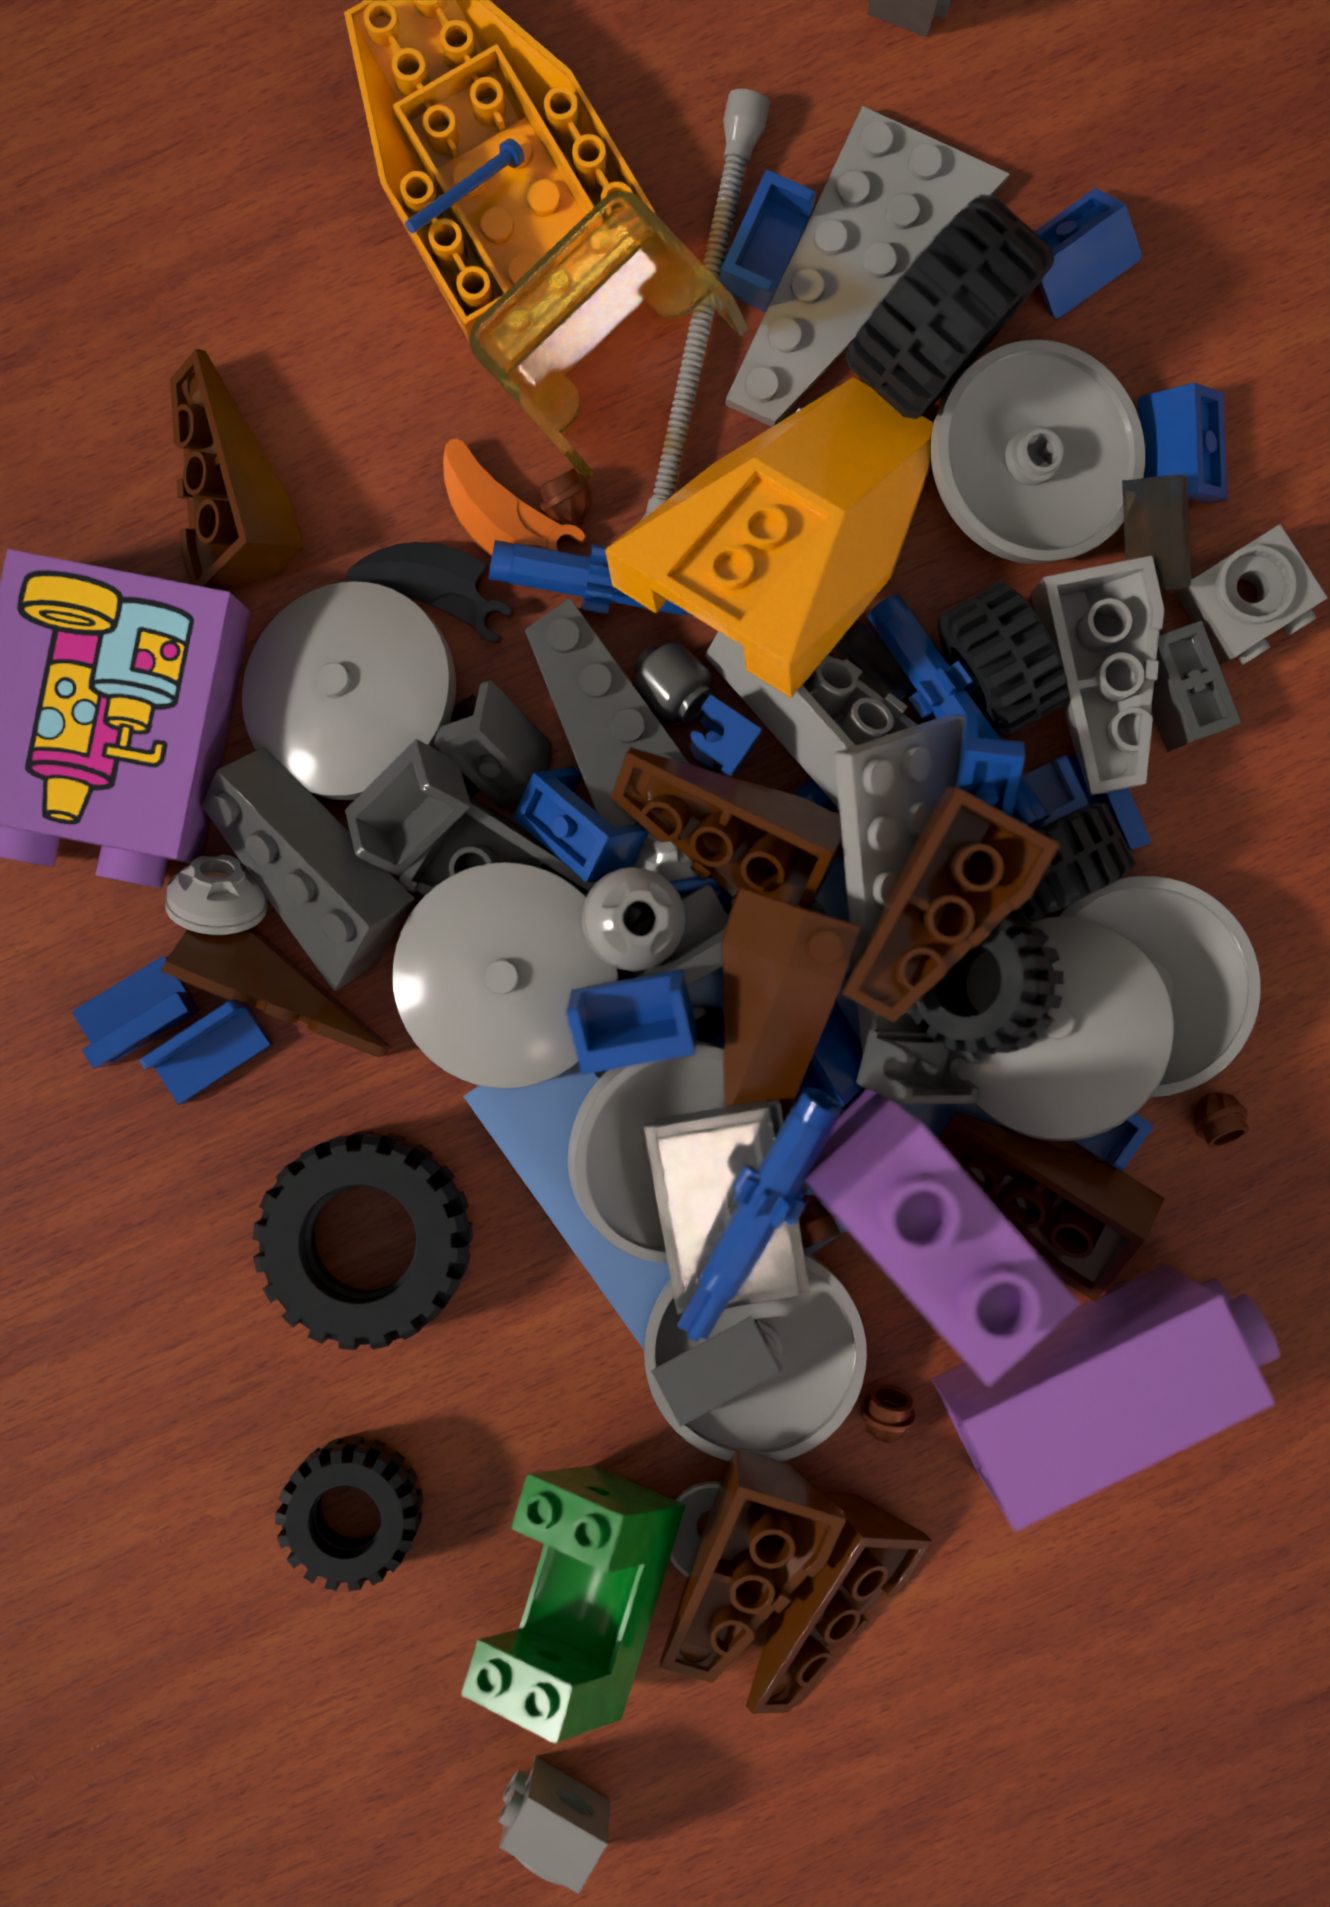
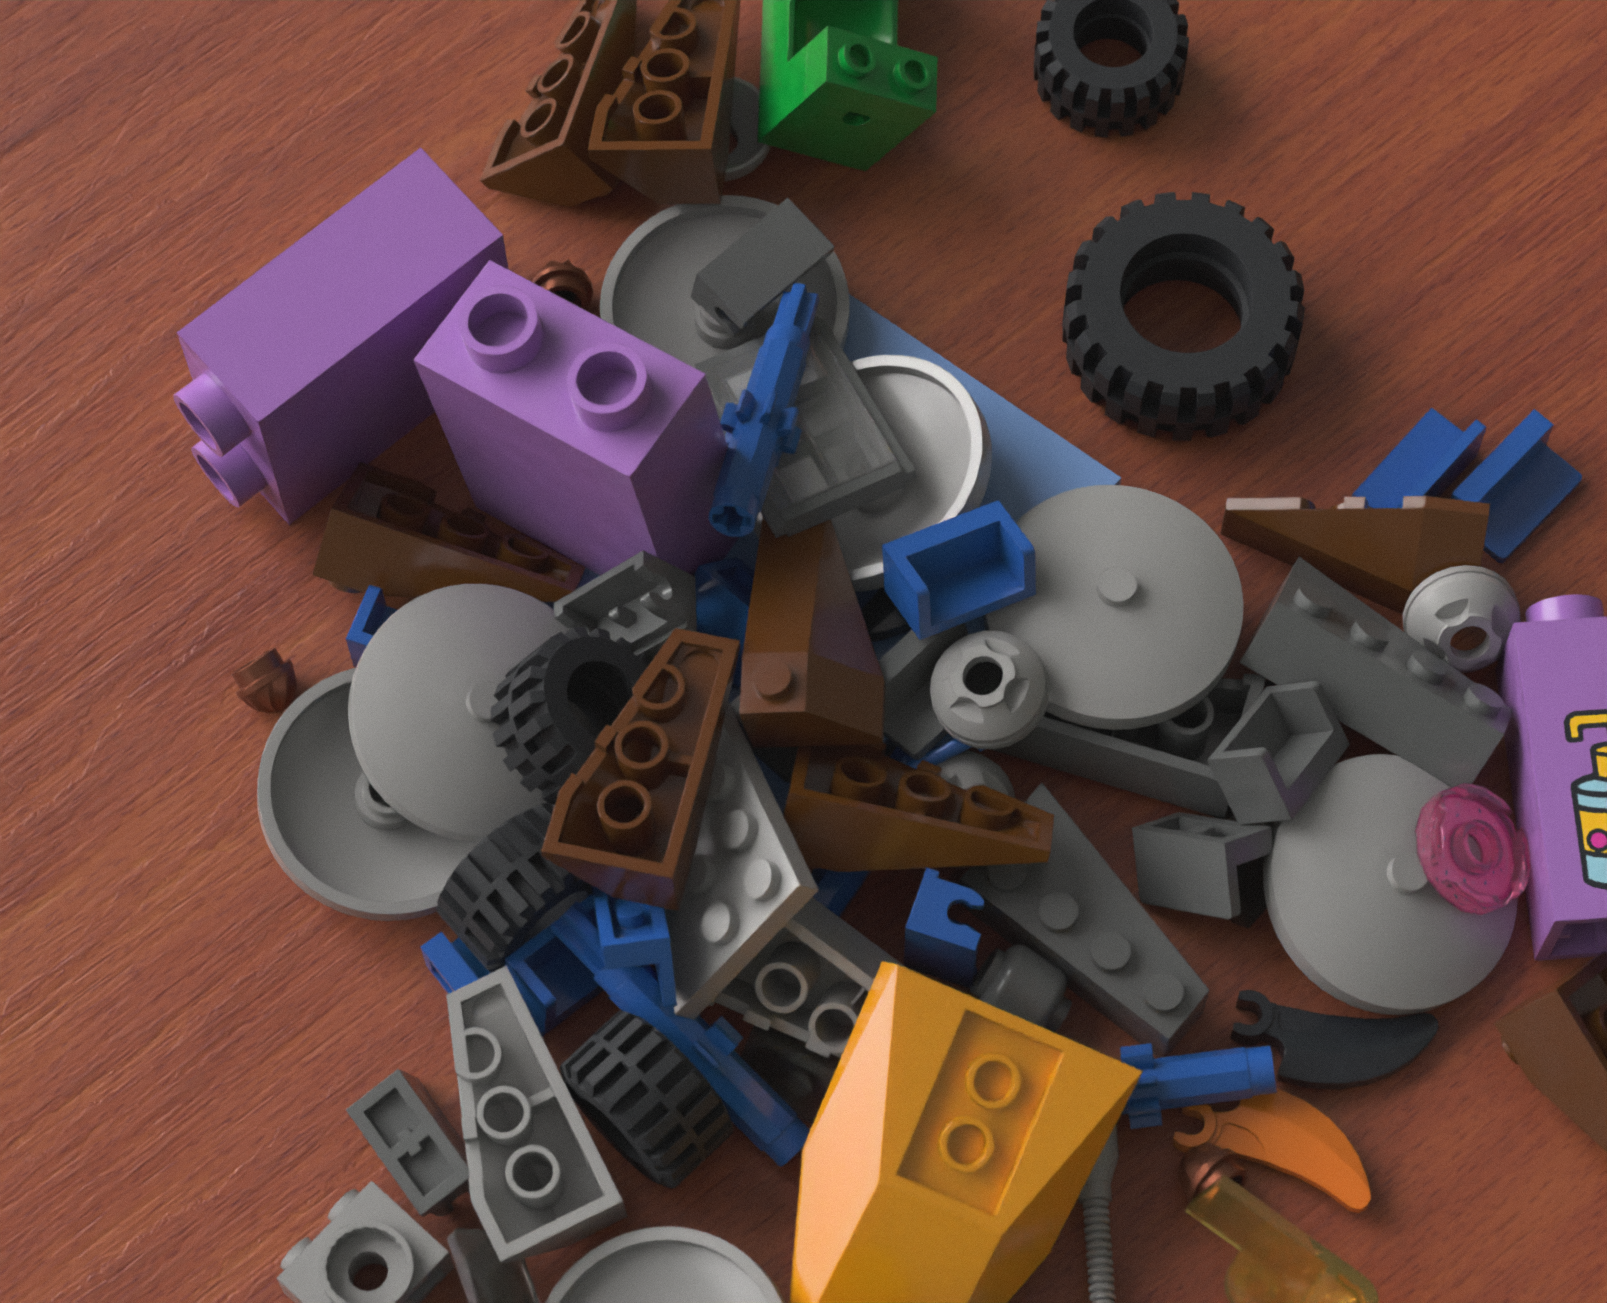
camera: 165 degrees right, 20 degrees down
(296, 695) = (1446, 857): none -> clear pink tile
(573, 828) = (1087, 786): blue panel -> none

